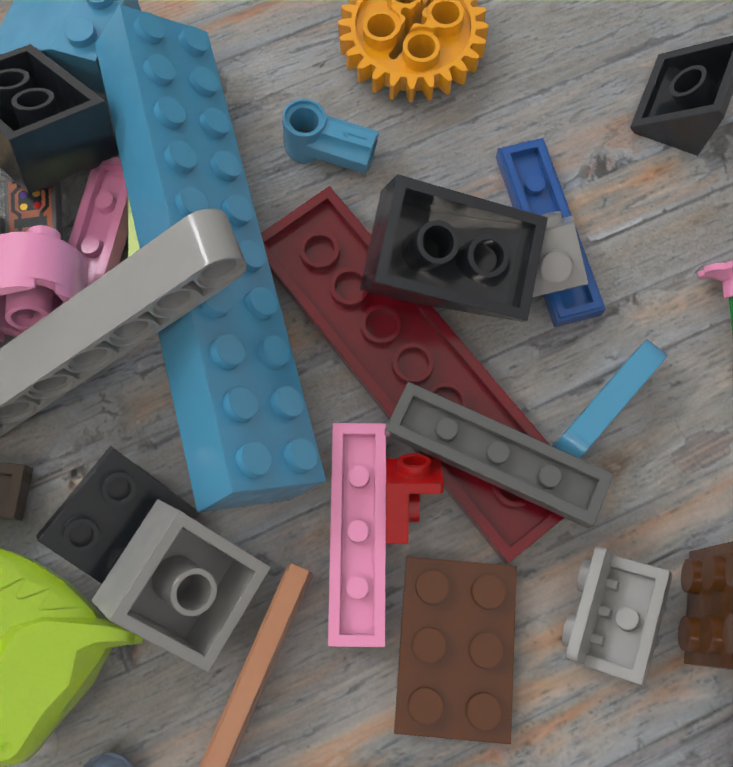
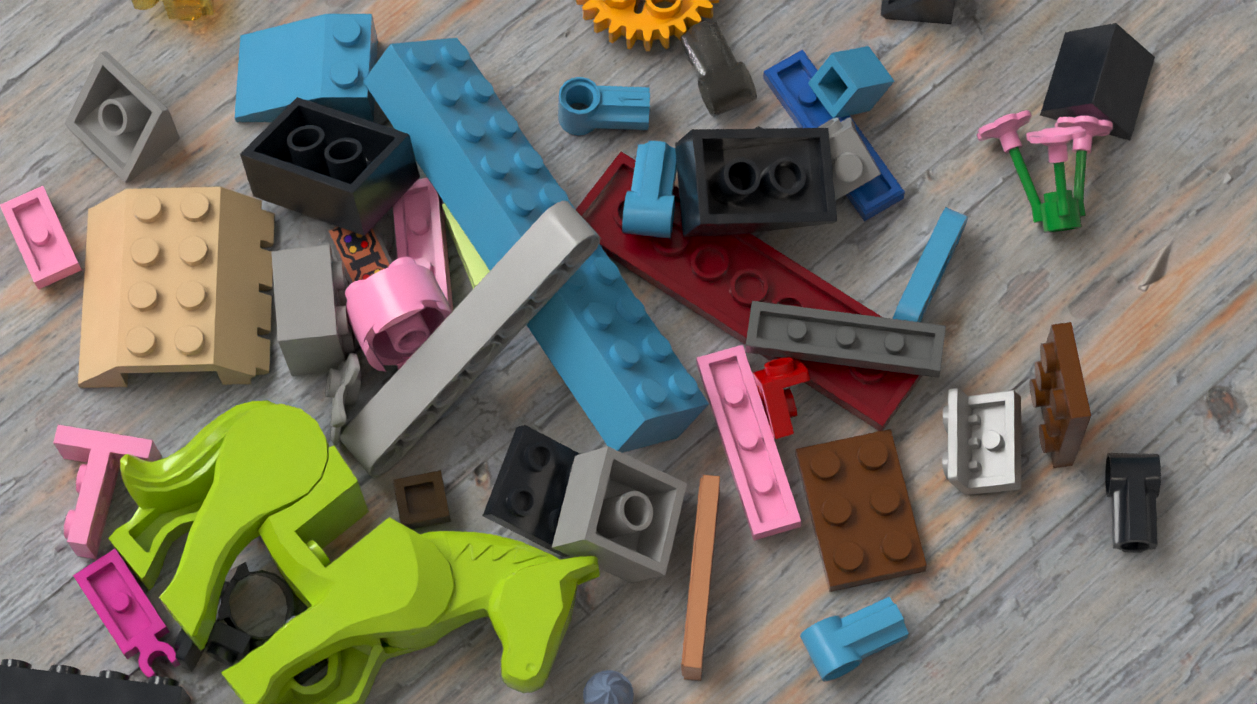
camera: 15 degrees left, 5 degrees down
(338, 244) = (651, 201): none -> dark azure piece
(453, 143) = (721, 79): none -> clear smoke piece
(583, 180) = (850, 82): none -> dark azure brick

